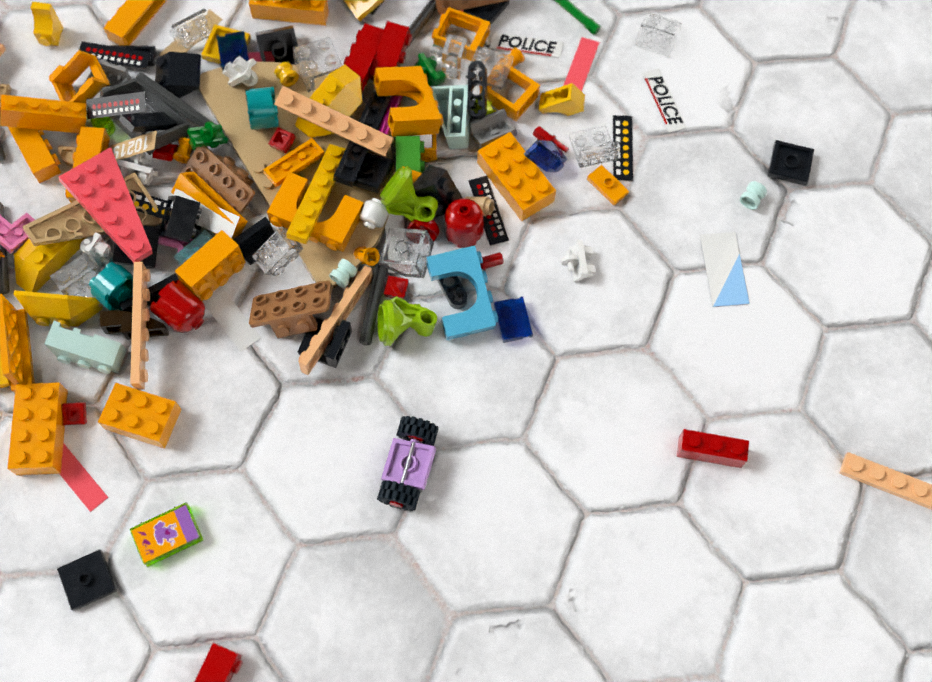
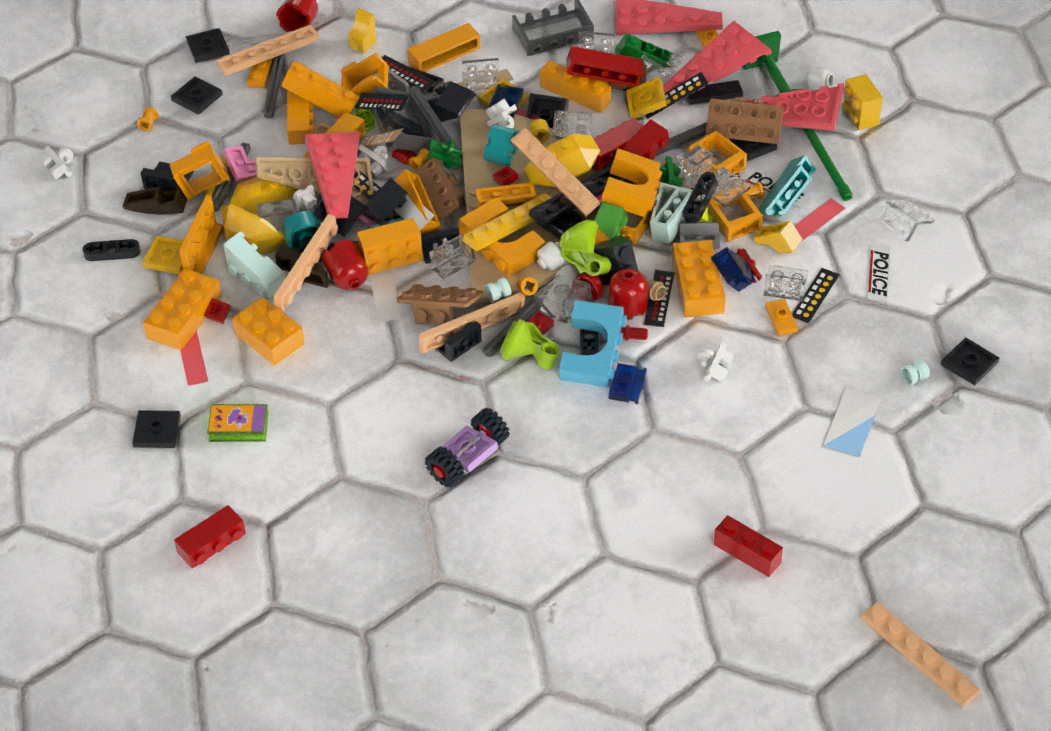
camera: 30 degrees right, 20 degrees down
(540, 41) = (788, 187): none -> teal wedge

